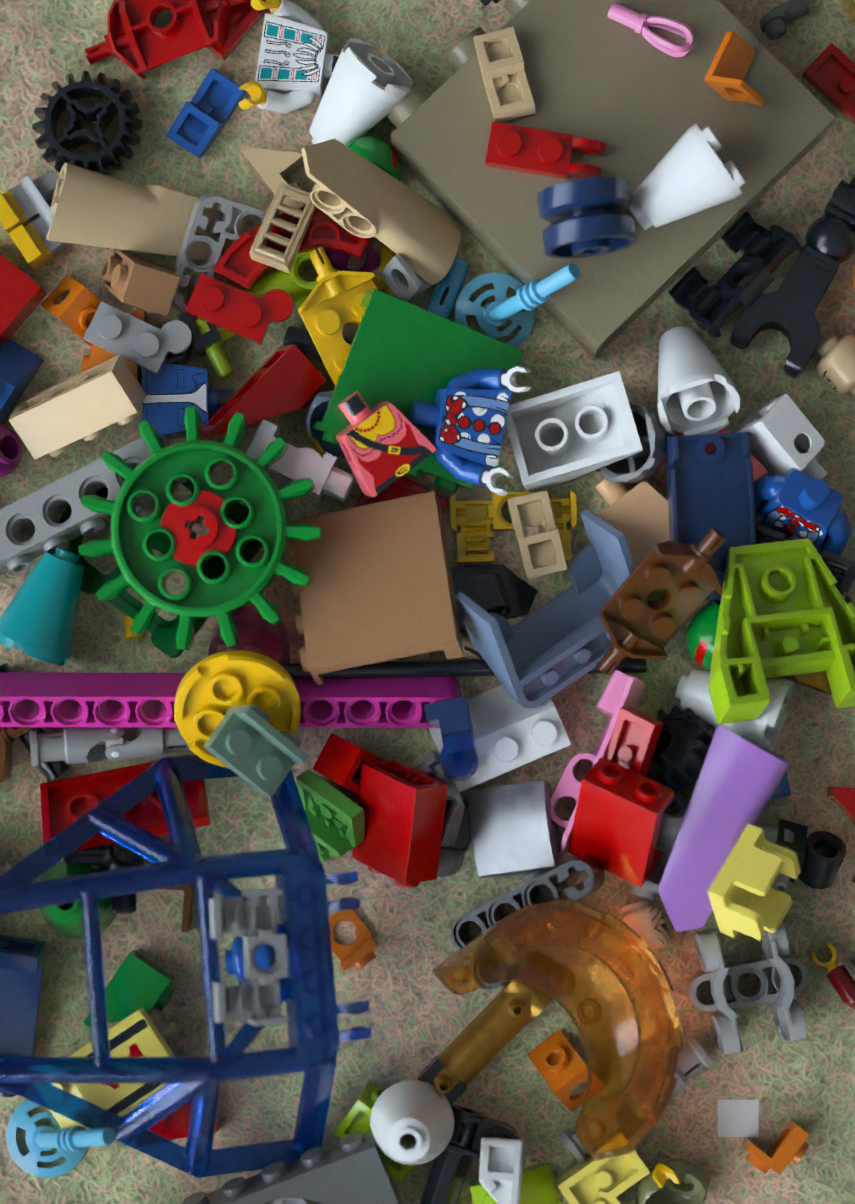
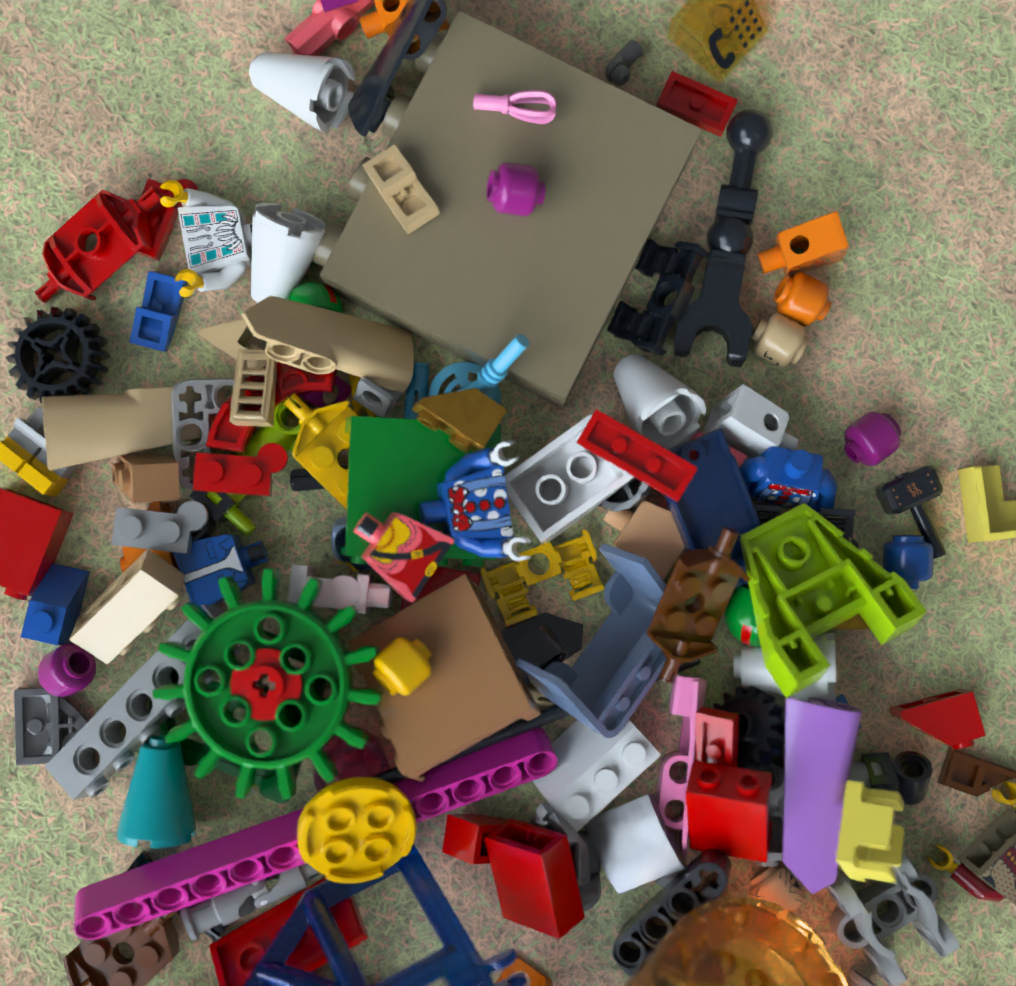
camera: 20 degrees left, 0 degrees up
(76, 309) = (100, 517): orange bracket -> none
(255, 748) = (383, 865): sand green bracket -> none
(278, 387) = (295, 532): red slope -> none
(333, 817) = (471, 891): bright green slope -> none
(340, 559) = (402, 666): none -> yellow head
(459, 749) = (566, 799): leg -> none
(487, 326) = (463, 415): none -> pearl gold slope
(536, 534) = (567, 579): tan slope -> none
(540, 151) = (456, 245): red hinge -> none
(586, 217) = (517, 289): dark blue wheel -> none
(620, 114) = (515, 189): none -> magenta head
(651, 427) = (637, 455): none -> red plate
(686, 181) = (594, 226): white cone -> none
(730, 68) = (596, 117): orange bracket -> none

